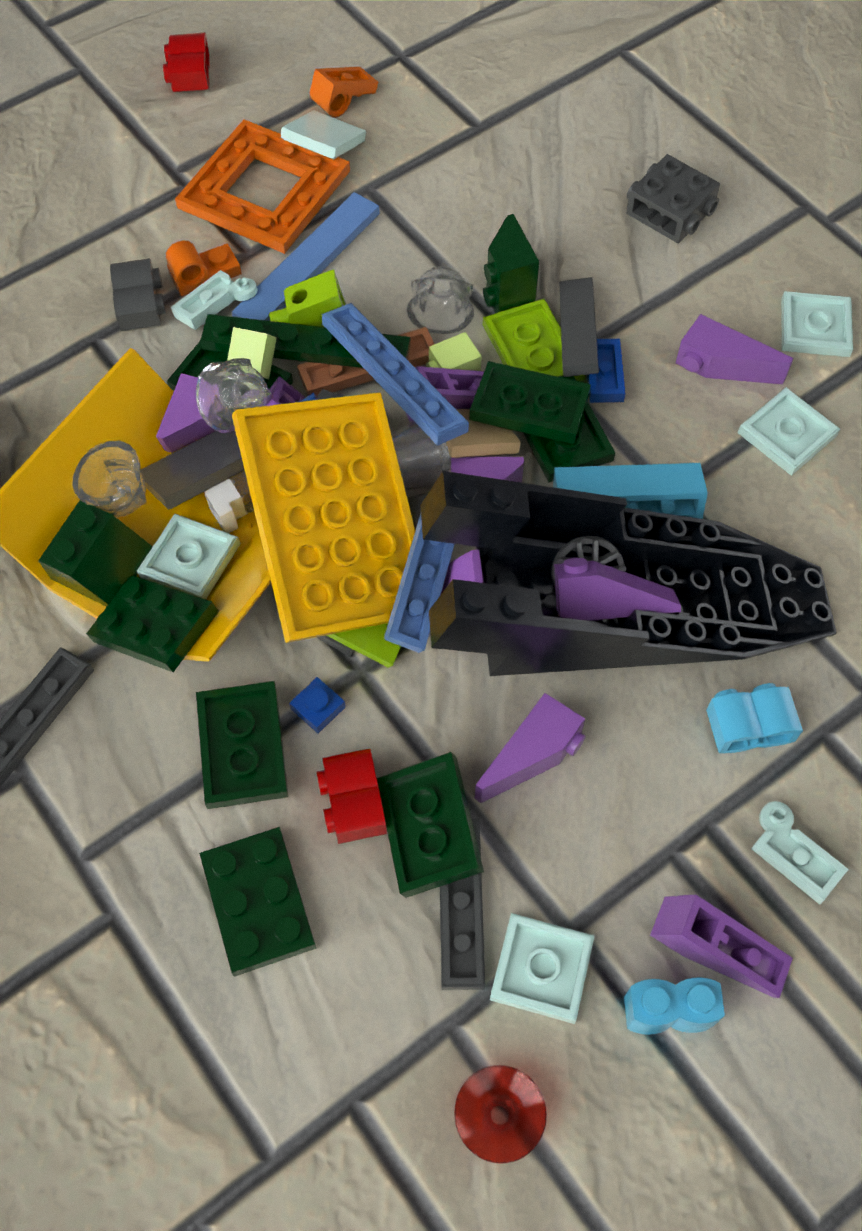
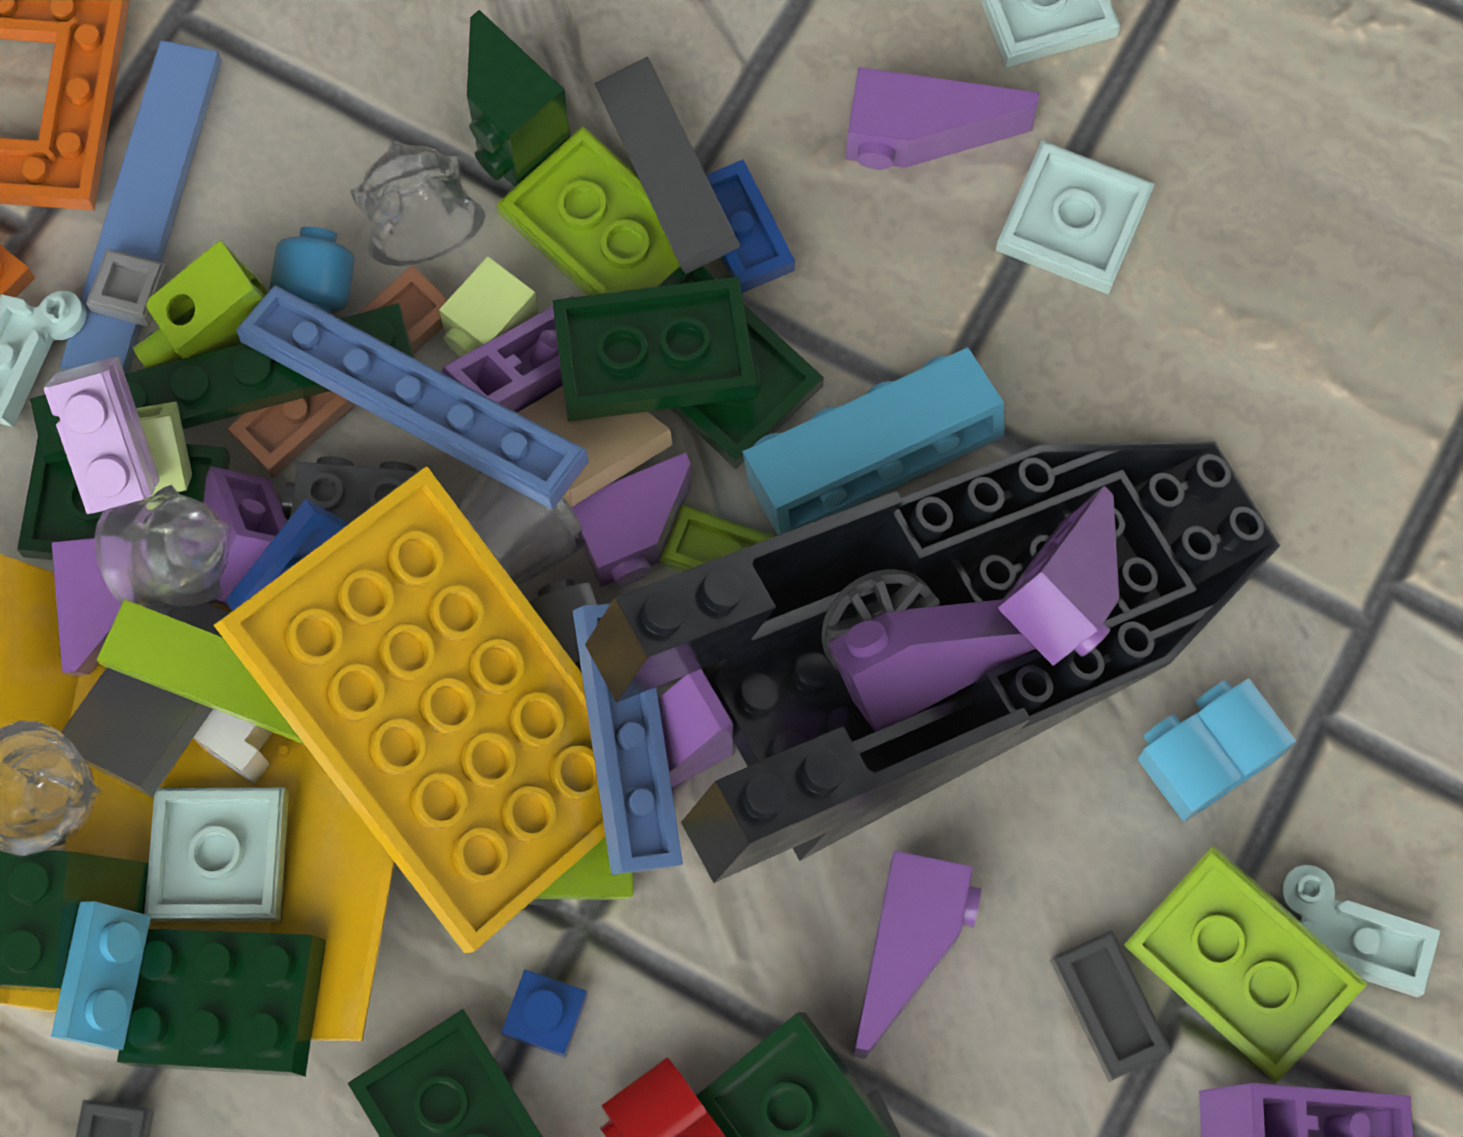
camera: 25 degrees left, 10 degrees up
(98, 584) = (101, 976): none -> medium azure plate
(215, 449) = (189, 665): none -> lime tile
(227, 322) = (102, 435): none -> lavender brick
(275, 284) = (125, 286): none -> light grey tile
(379, 309) = (314, 268): none -> dark azure head
(633, 833) = (1110, 1006): none -> dark grey tile
(701, 584) = (1069, 583): none -> medium lavender slope
(722, 839) = (1245, 964): none -> lime tile

